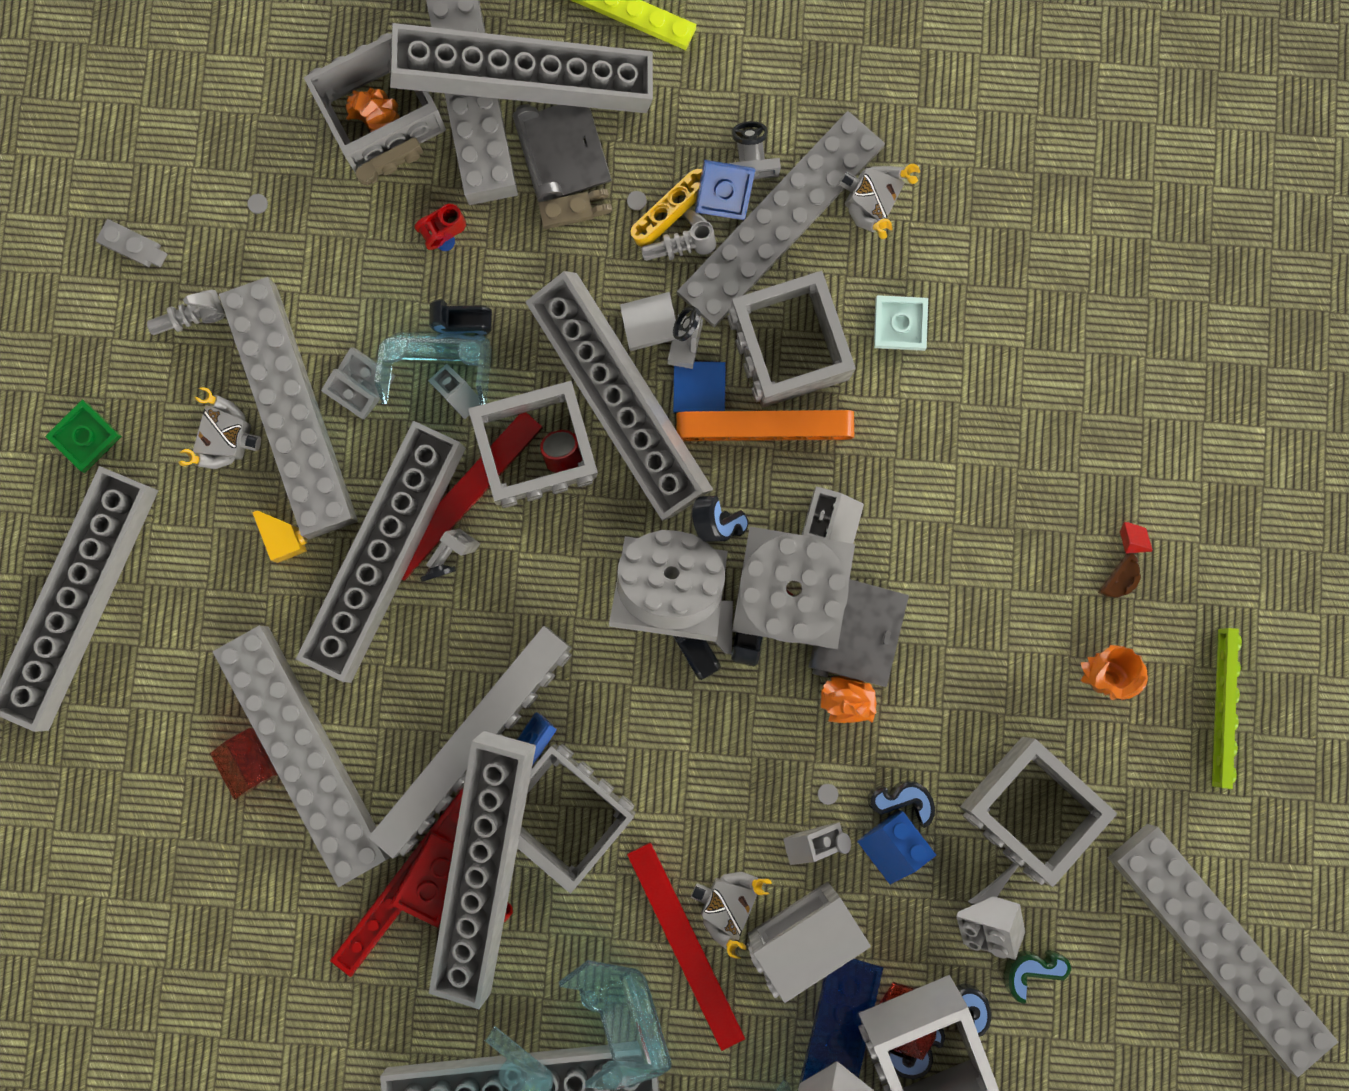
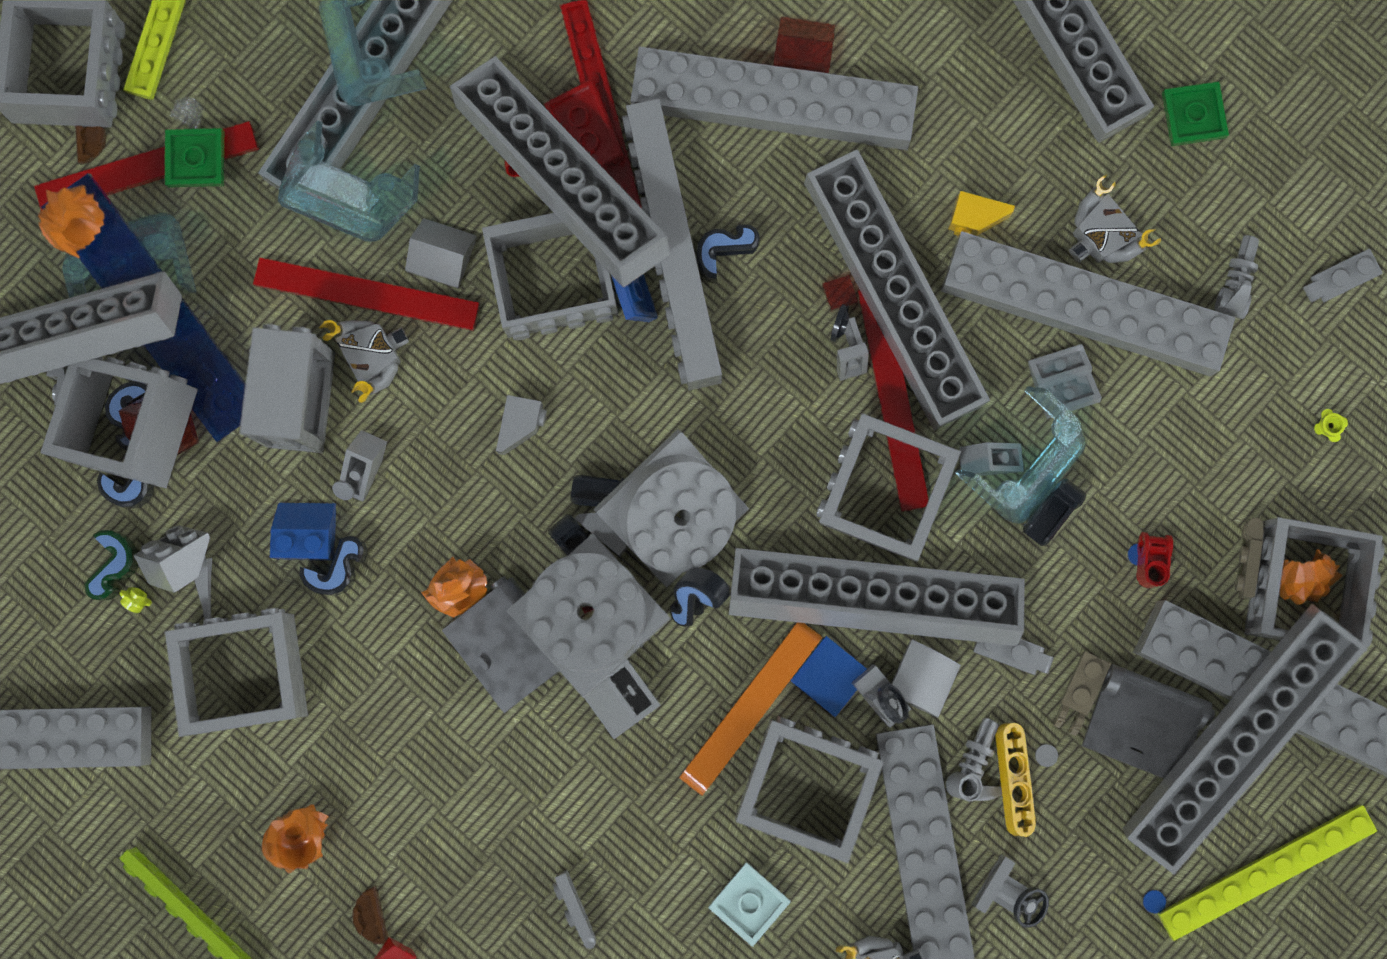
camera: 130 degrees right, 0 degrees up
(244, 170) = (1338, 421): none -> neon yellow plate
(257, 203) = (1299, 414): light grey piece -> none
(415, 592) = (839, 292): none -> clear red tile
(441, 704) = (723, 243): none -> black animal
(560, 451) = (866, 508): piece -> none
(580, 263) = (1024, 656): none -> light grey hinge
(611, 915) = (439, 252): none -> light grey slope
(679, 57) = (1154, 901): none -> blue piece
(692, 751) = (519, 422): none -> light grey slope
(724, 190) = (993, 839): tile -> none
(828, 794) = (393, 510): light grey piece -> none
(1004, 436) = (575, 914): none -> light grey hinge
(1044, 933) = (134, 599): none -> neon yellow plate

